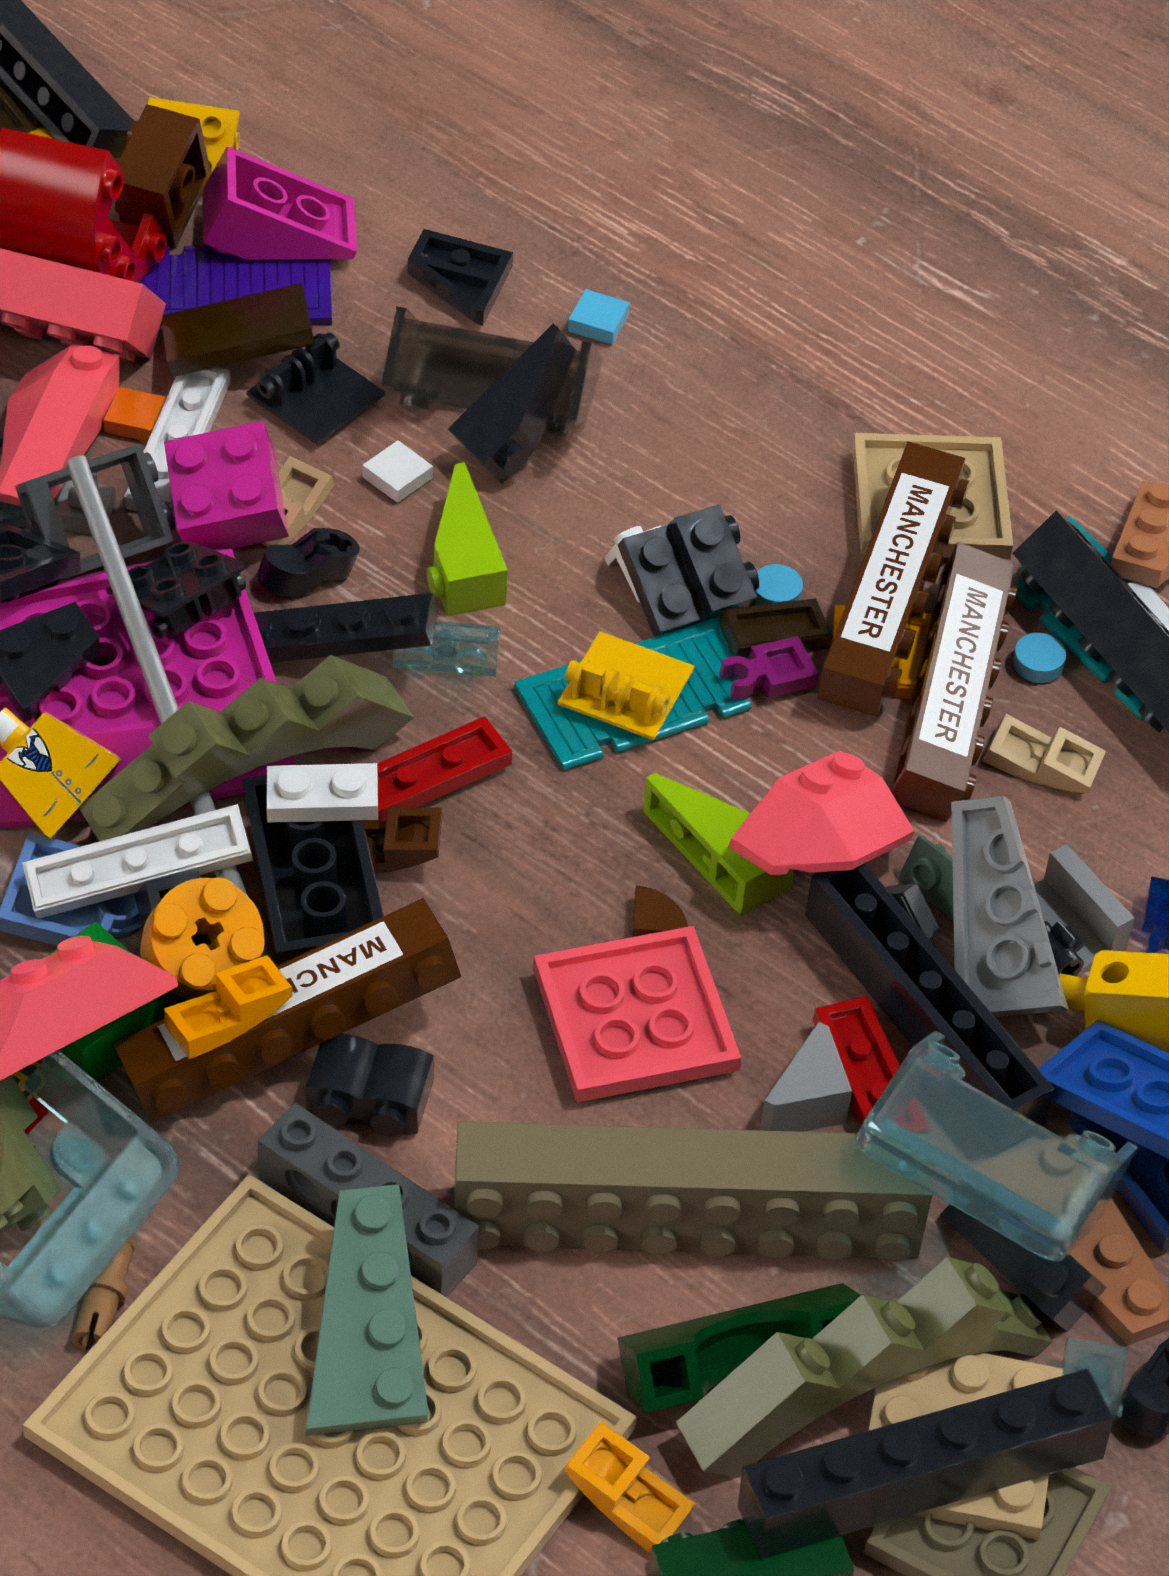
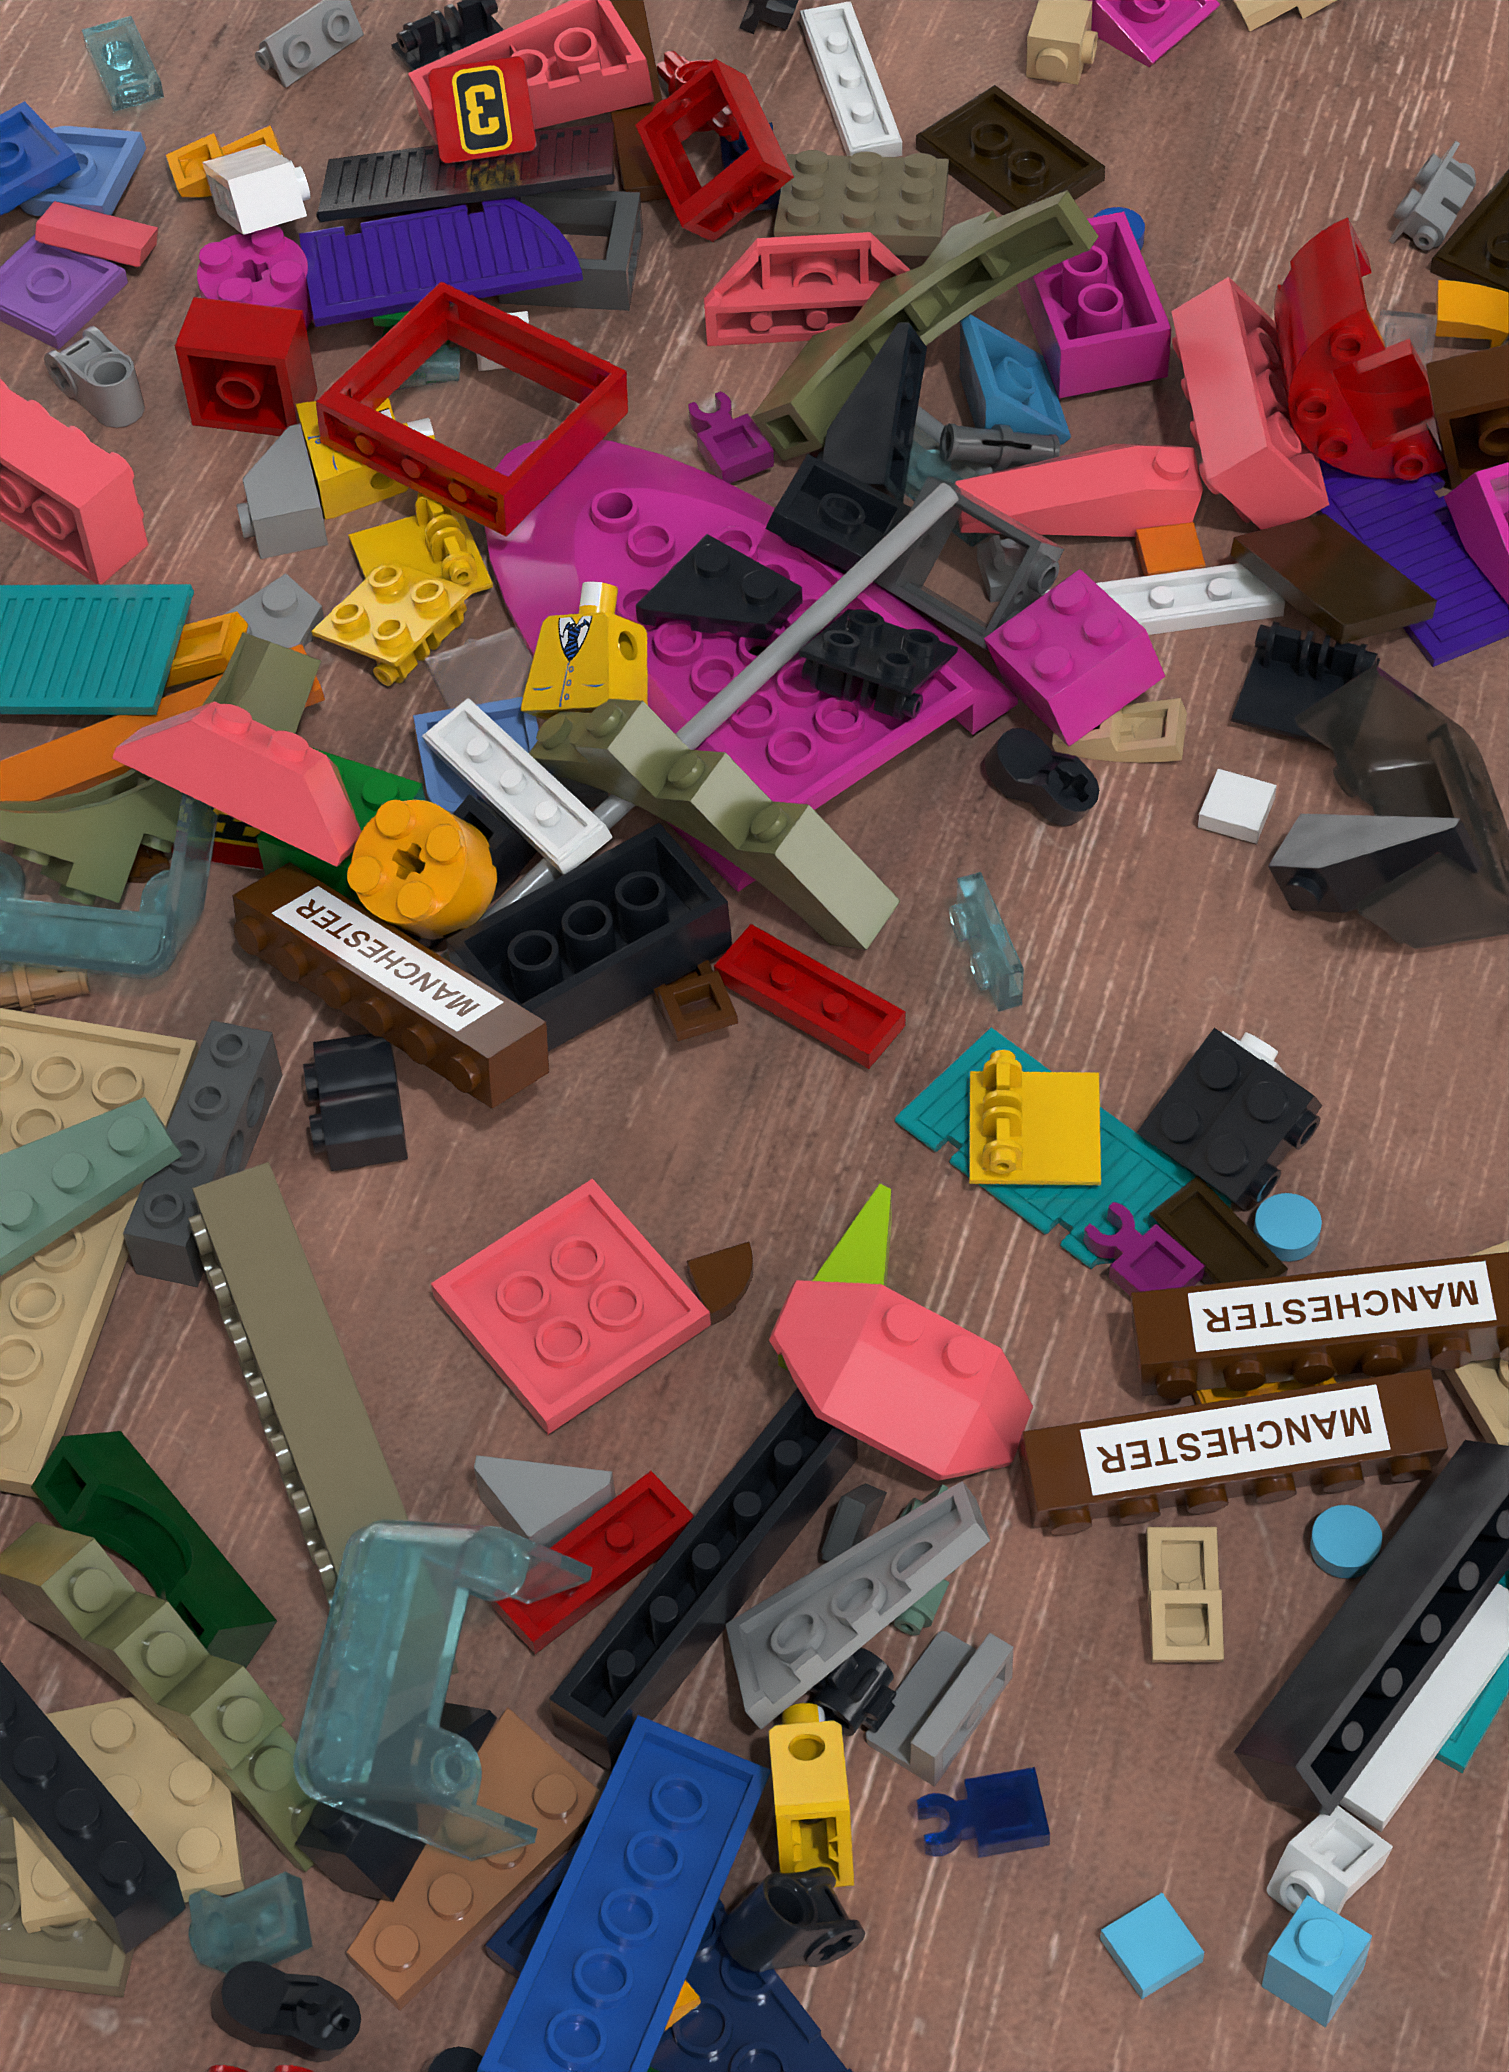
camera: 75 degrees right, 5 degrees up
(241, 1001) = (336, 923): light orange slope -> none
(322, 792) = (664, 891): white plate -> none
(348, 627) = (940, 830): black plate -> none
(467, 559) = (1148, 901): lime slope -> none

